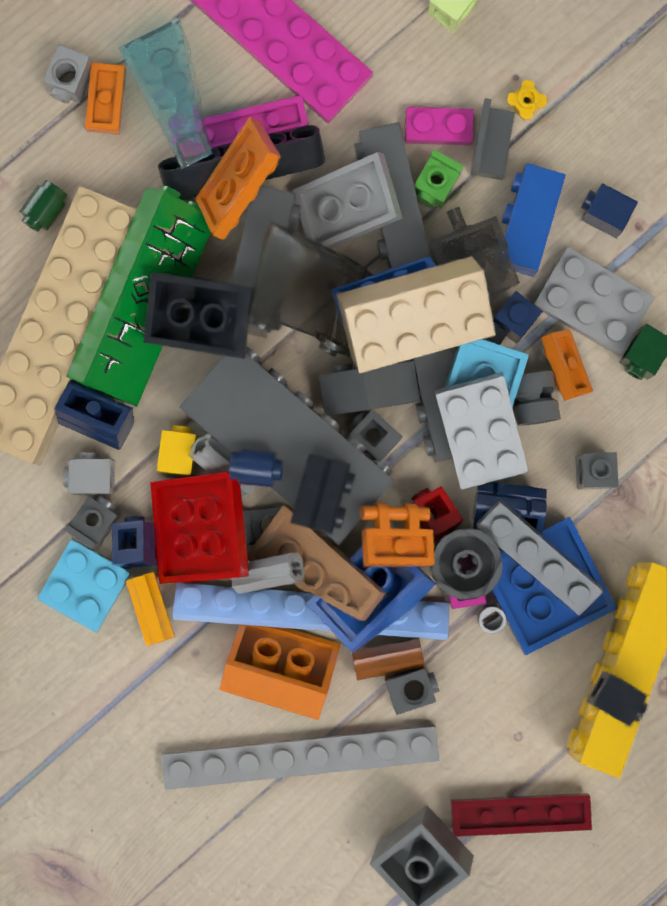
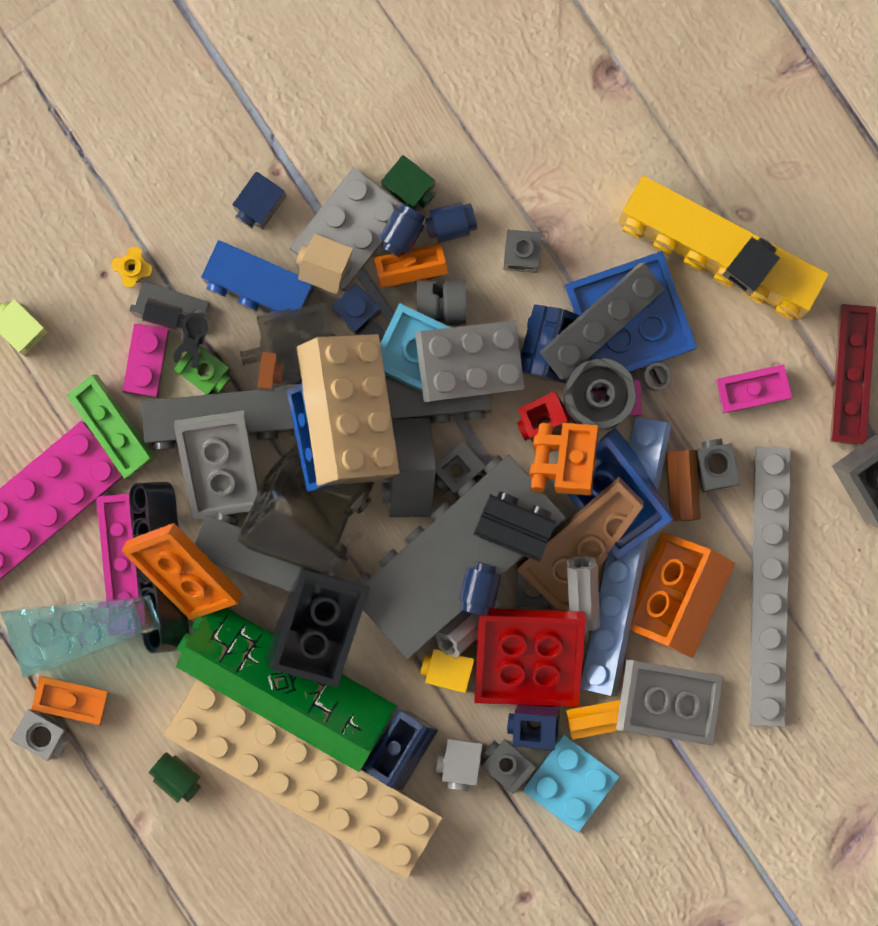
camera: 80 degrees left, 0 degrees up
(171, 671) = (669, 702): none -> light grey plate
(370, 100) = (111, 426): none -> bright green plate
(442, 233) = (270, 372): none -> dark orange plate
(478, 159) = (193, 326): none -> black bar
(493, 717) = (753, 389): none -> dark pink plate
(557, 277) = (324, 263): none -> tan brick
(600, 351) = (402, 230): none -> dark blue brick
(615, 398) = (451, 222): none -> dark blue brick

